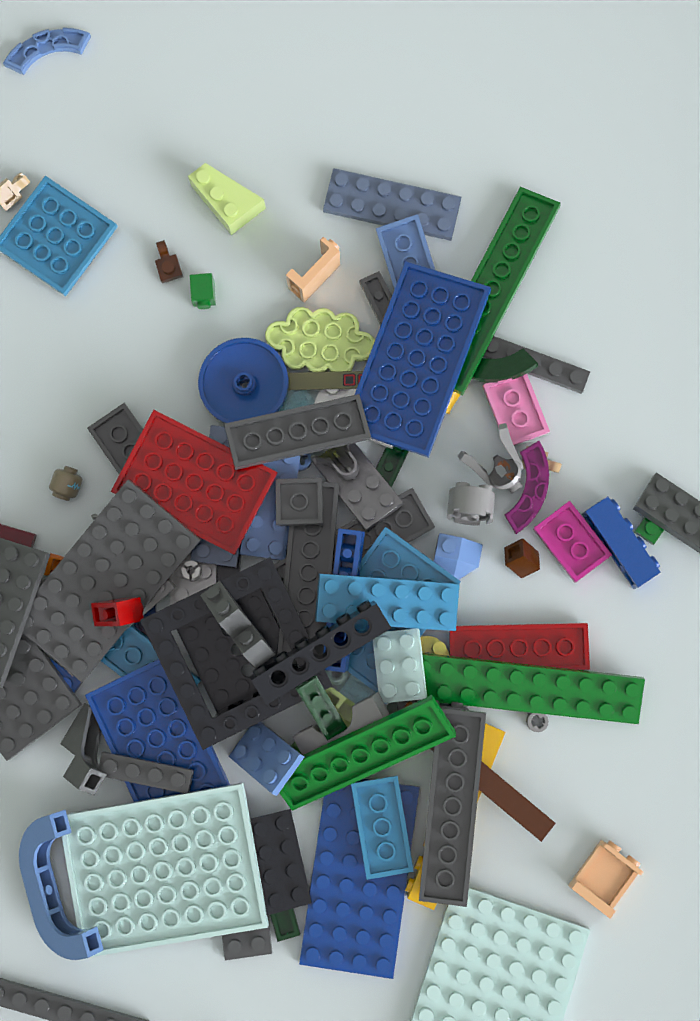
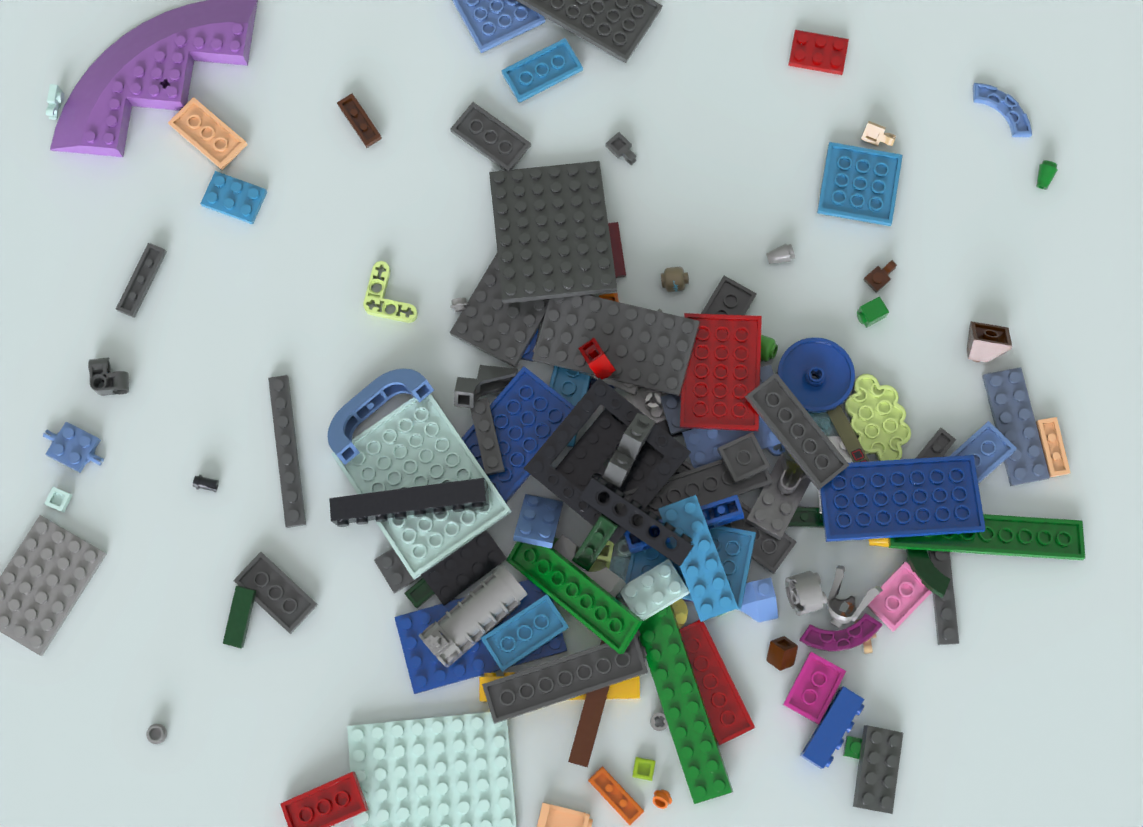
camera: 65 degrees right, 5 degrees down
(93, 356) = (781, 254): none -> light grey cone
(138, 39) = (1046, 173): none -> green cone
(179, 896) = (409, 501): none -> black brick
(191, 419) = (768, 348): none -> bright green head
(226, 198) = (954, 296): yellowish green wedge -> none
(290, 188) = (987, 341): none -> slope
(305, 286) = (928, 392): light nougat panel -> none
(341, 881) = (473, 616): none -> light grey piece
(431, 177) = (1053, 447): none -> light nougat plate
(579, 760) = (643, 768): none -> lime tile
(594, 803) = (616, 795): none -> orange tile
(619, 756) = (662, 799): none -> orange plate

